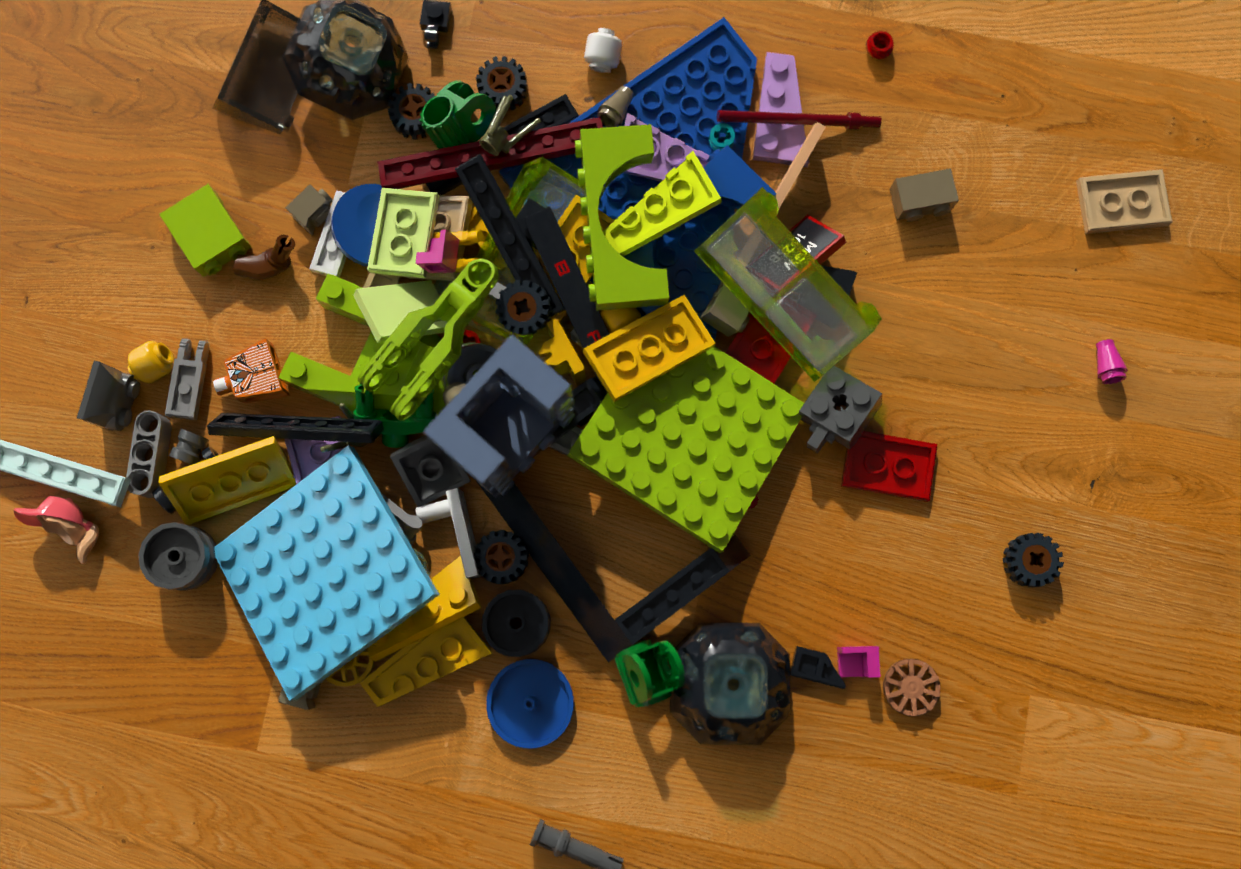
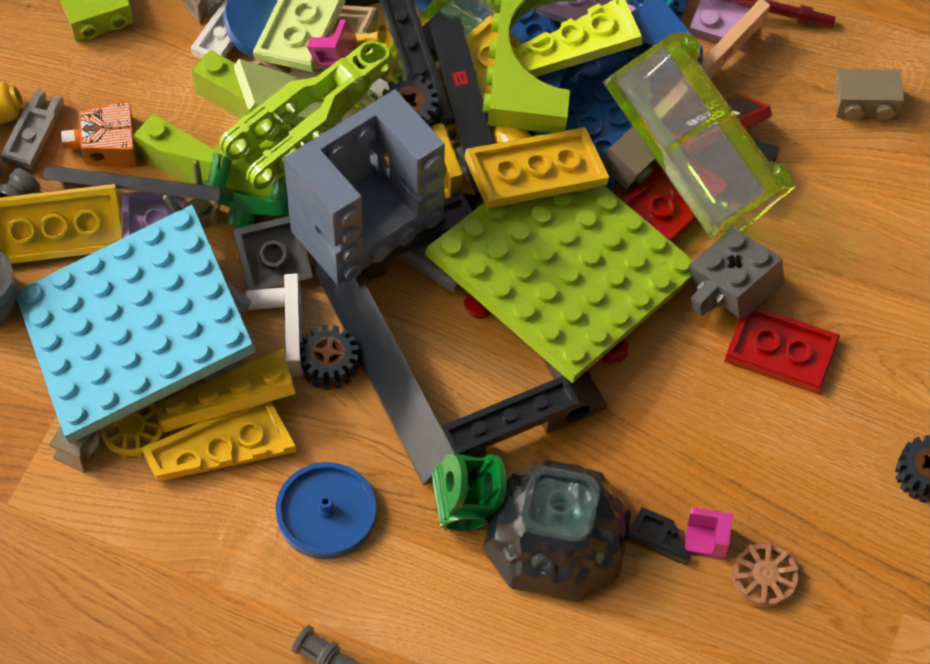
camera: 10 degrees right, 20 degrees down
(268, 263) = (148, 37): reddish brown arm -> none
(509, 606) = (331, 418): black wheel -> none

